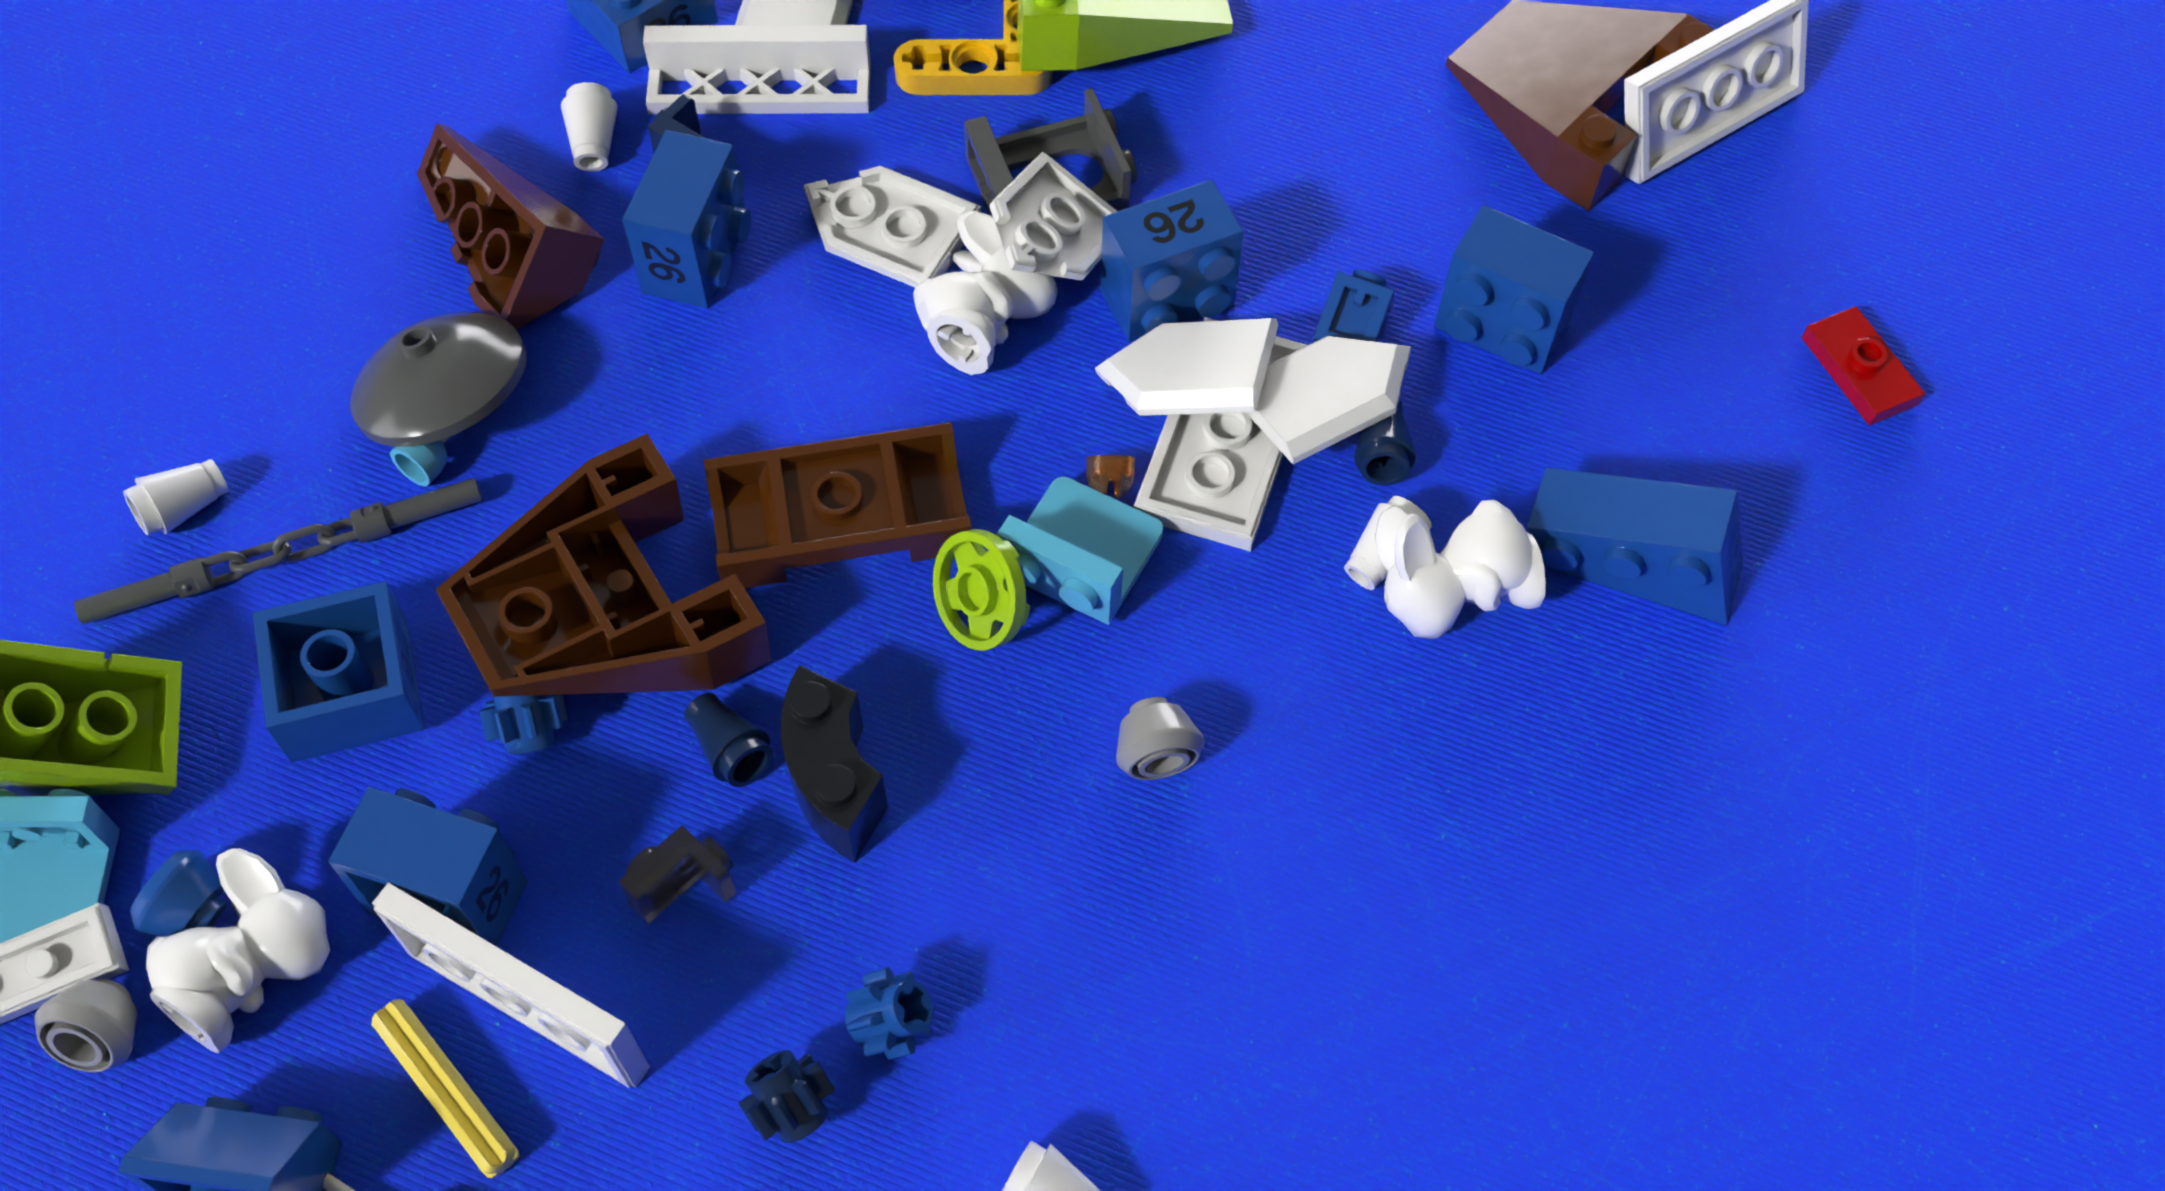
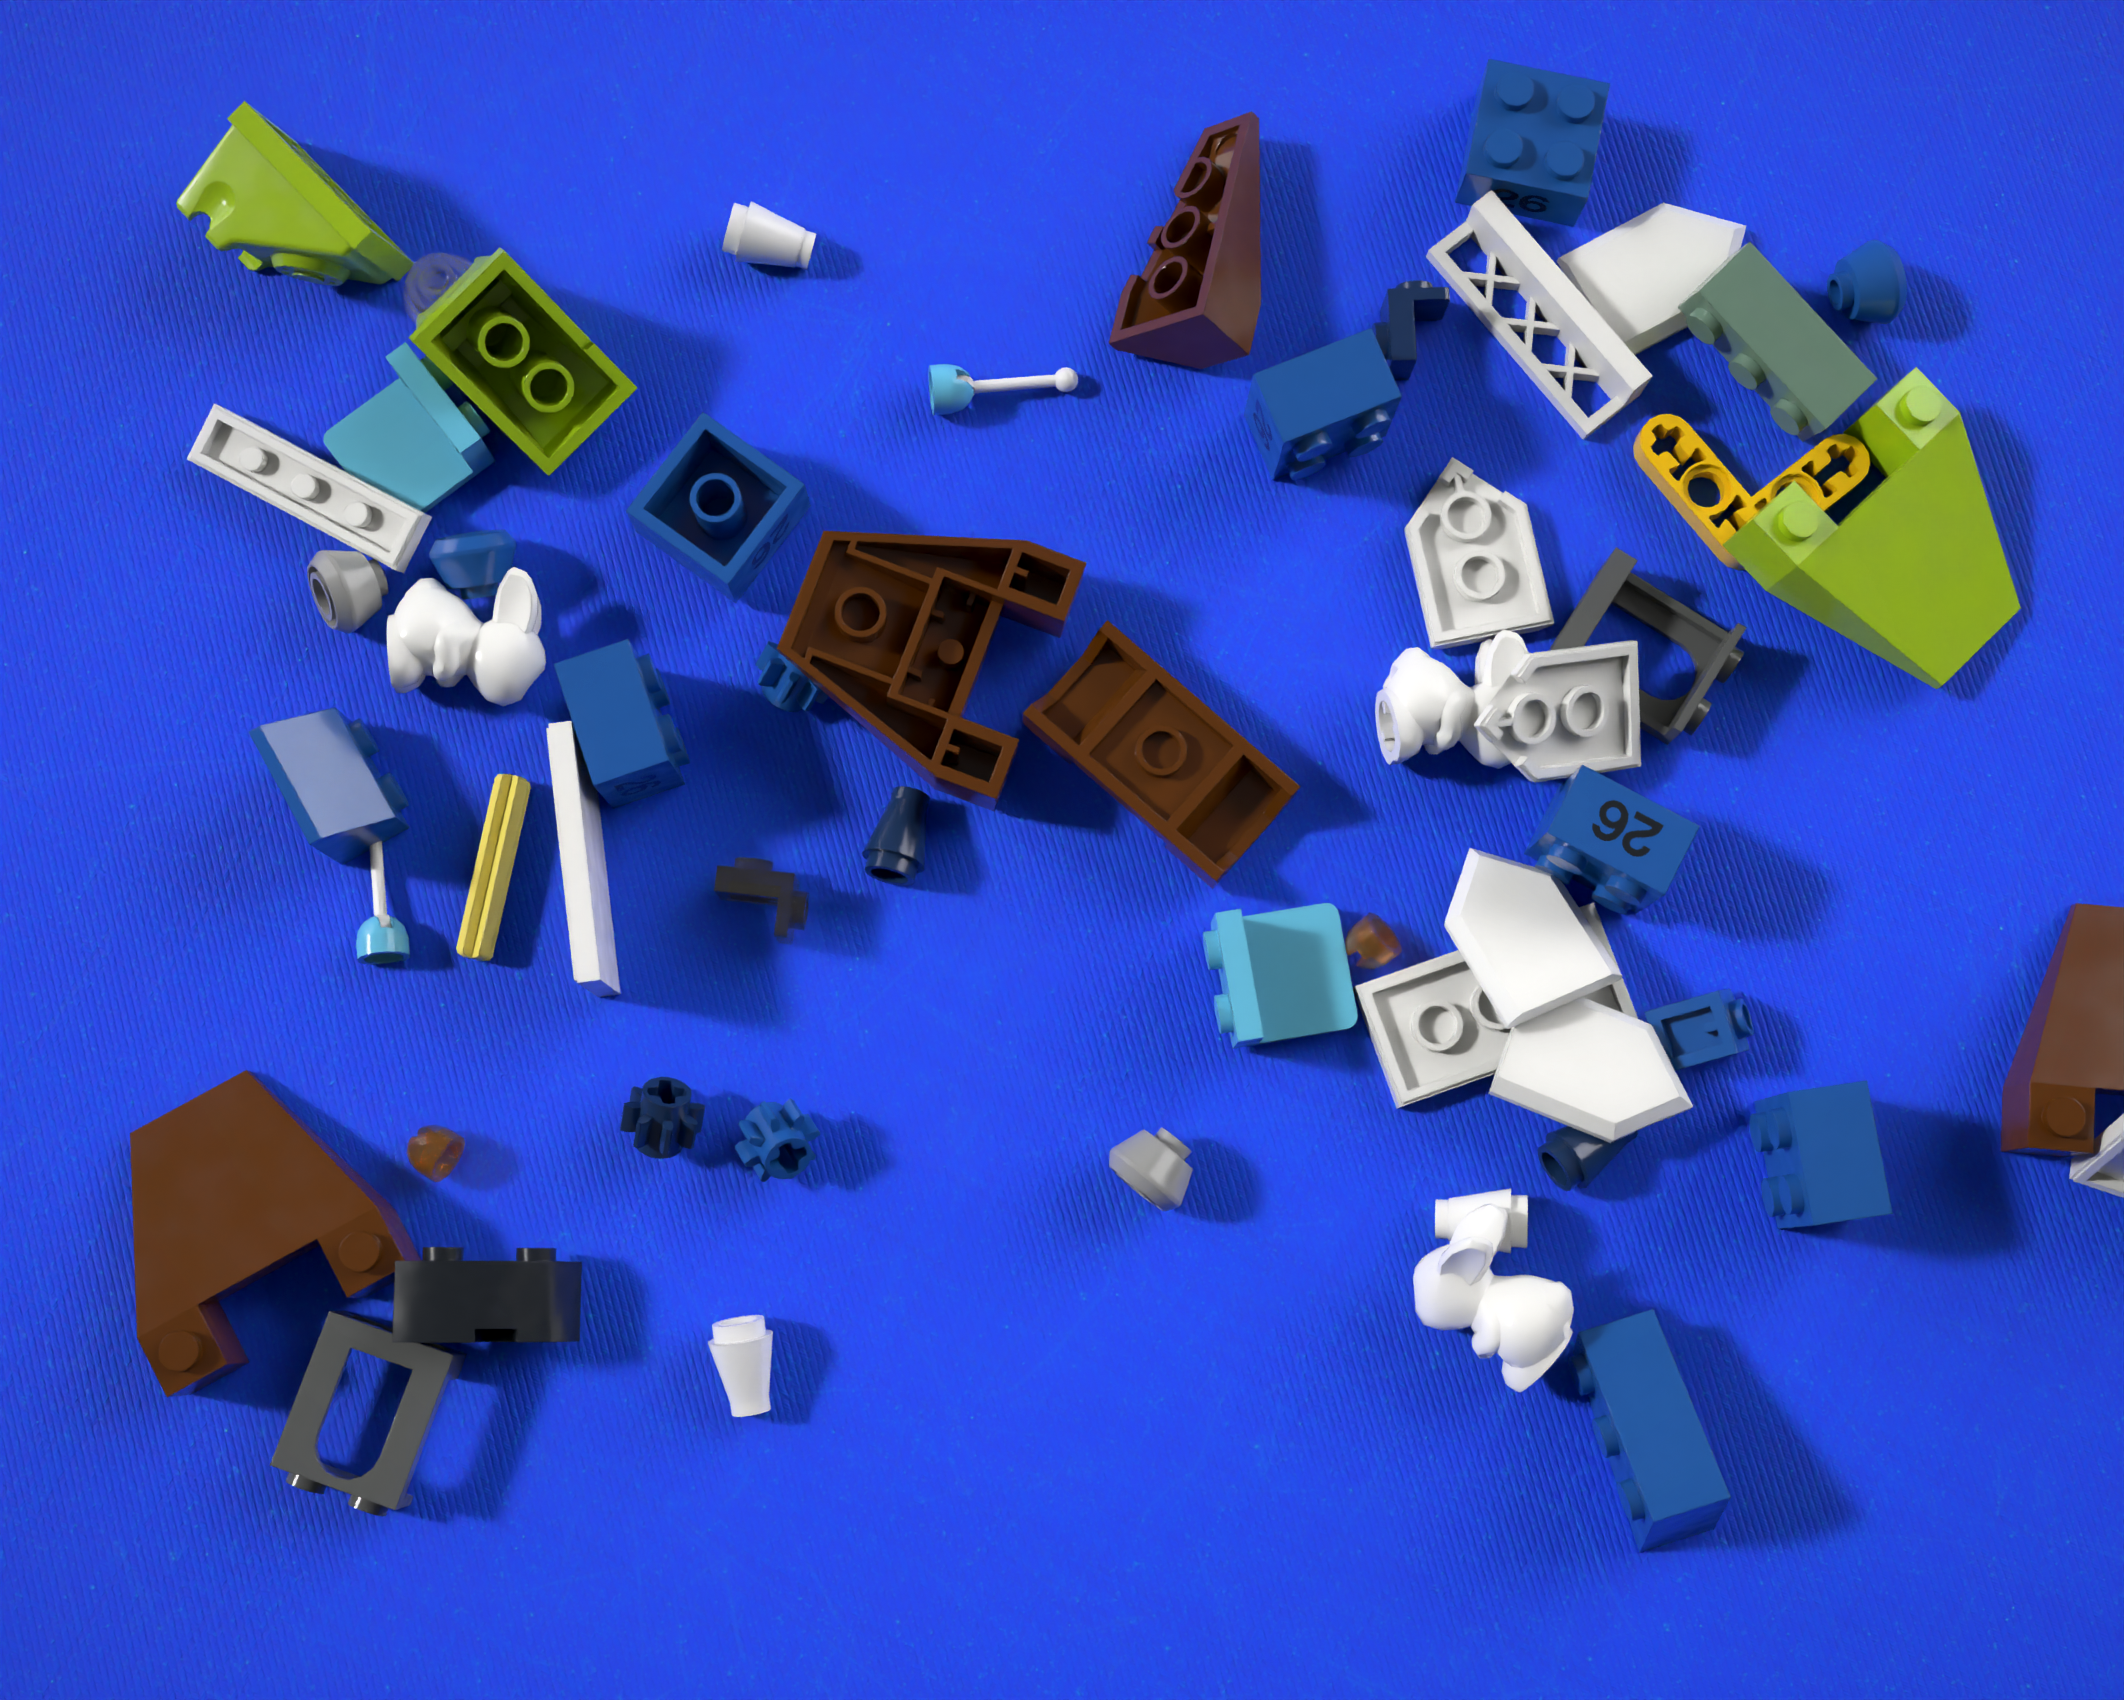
camera: 50 degrees right, 20 degrees up
(197, 577) = (862, 400): dark grey piece -> none
(437, 378) = (1021, 341): dark grey dish -> none
(589, 123) = (1363, 228): white cone -> none
(832, 783) = (931, 931): black brick -> none
(985, 588) = (1169, 931): lime wheel -> none
(1862, 365) = (2015, 1509): red plate -> none

